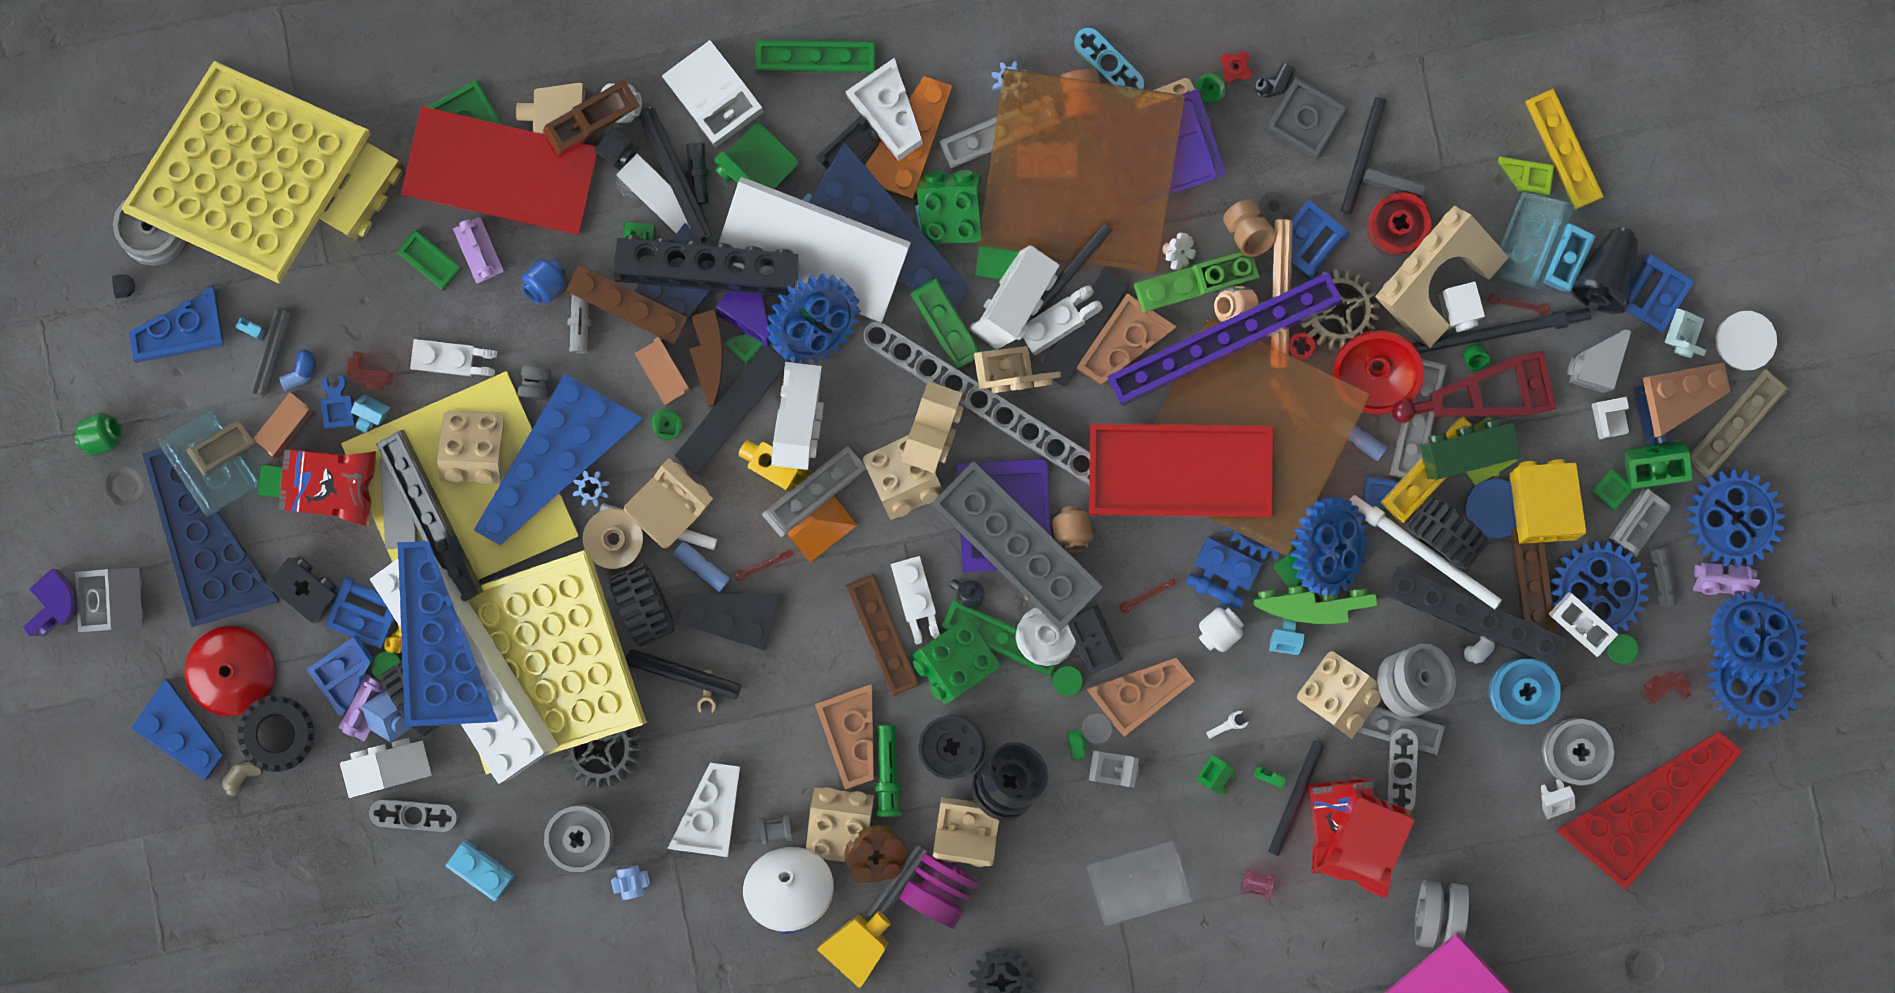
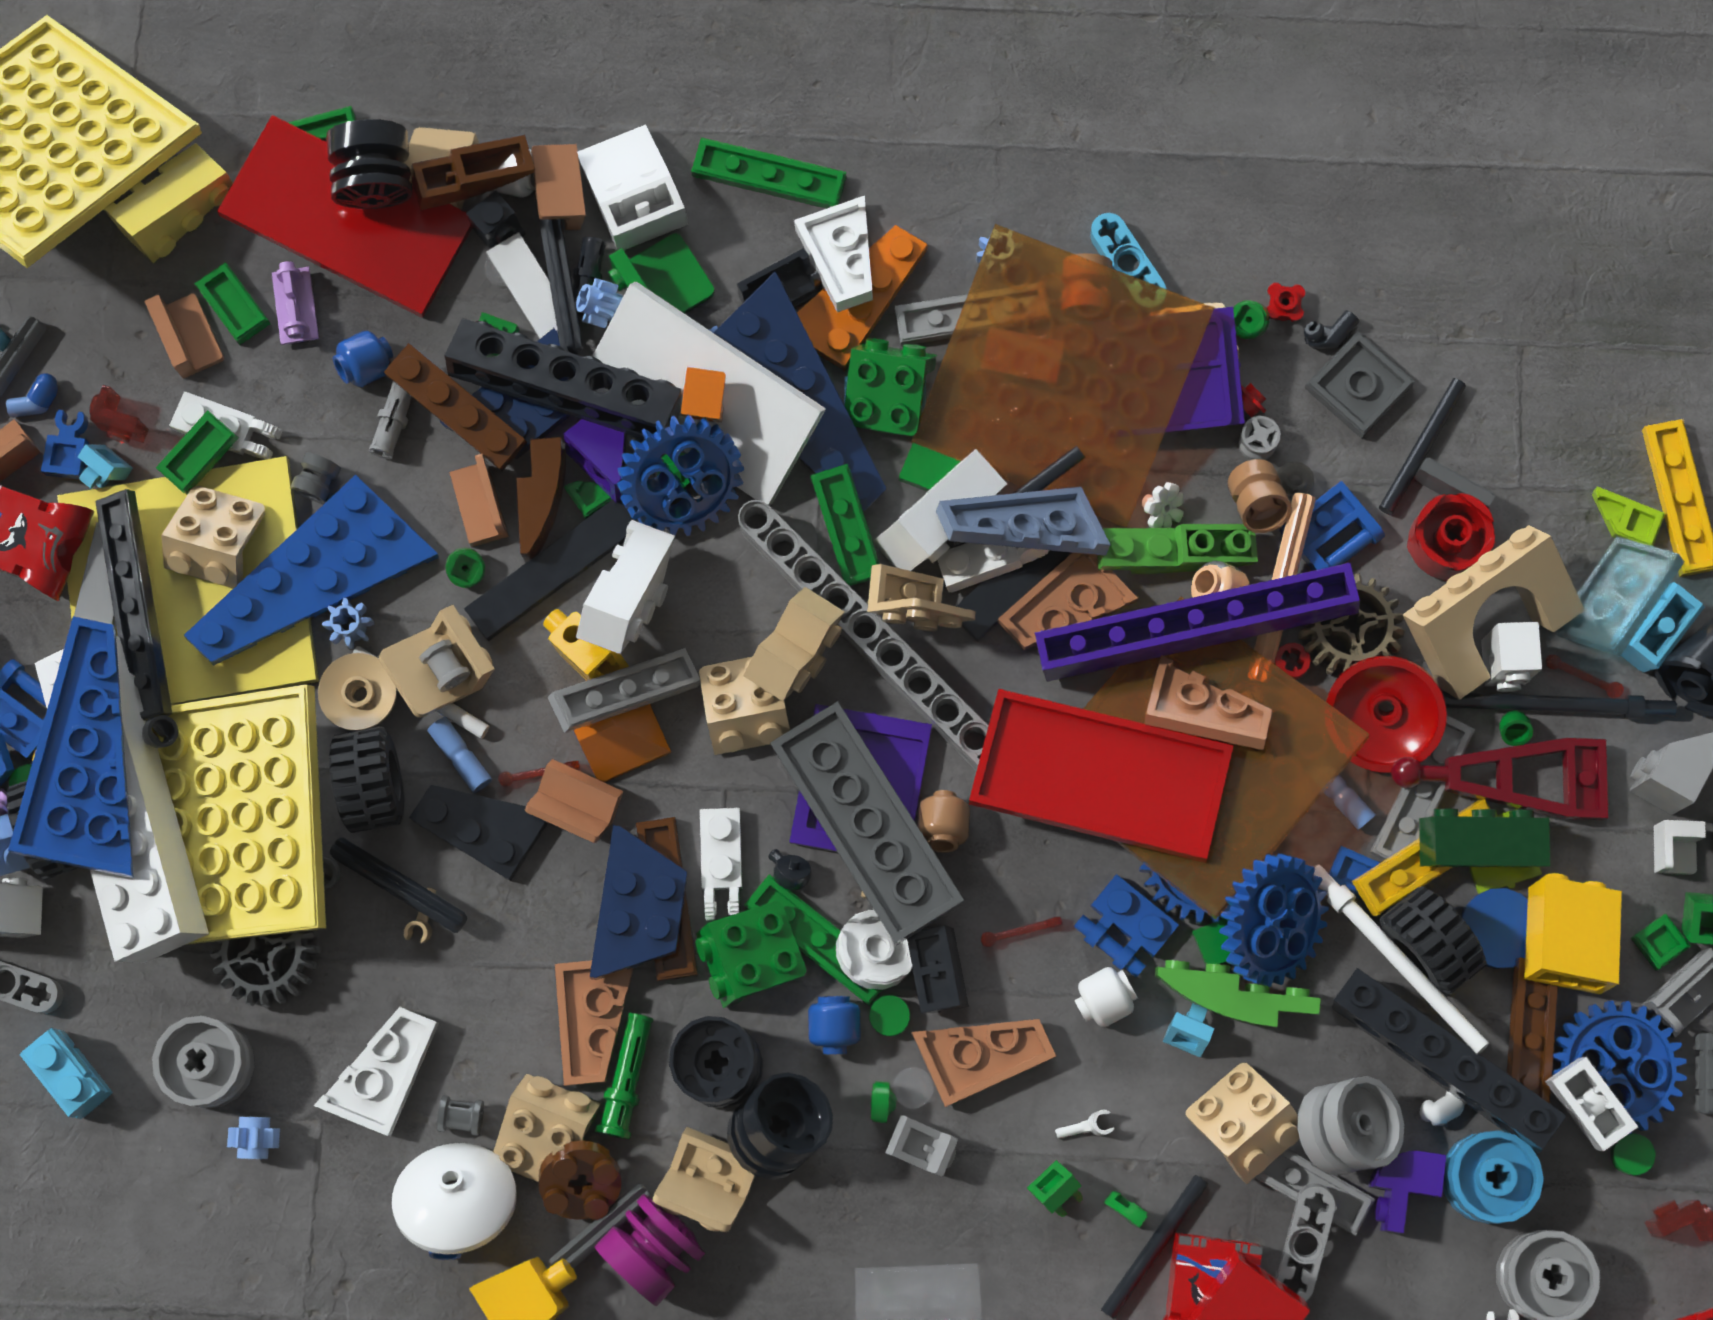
camera: 20 degrees right, 10 degrees down
(401, 292) = (185, 334): none -> nougat panel
(439, 386) = (197, 452): none -> green tile
(483, 604) = (164, 727): none -> black hinge
(512, 133) = (369, 164): none -> black wheel
(658, 107) = (559, 184): none -> nougat panel
(675, 505) = (444, 665): none -> light grey bush
(715, 196) = (598, 302): none -> light blue gear
(797, 582) = (575, 801): none -> nougat panel
(817, 255) = (703, 394): none -> orange panel
(865, 647) = (638, 906): none -> dark blue wing
(1029, 697) = (834, 1024): none -> blue head
(1085, 291) = (1026, 520): none -> sand blue wing
(1227, 151) = (1252, 400): none -> red plate
(1241, 403) = (1194, 707): none -> nougat wing
(1243, 176) = (1259, 430): none -> light grey wheel
(1466, 701) = (1408, 1173): none -> dark purple brick

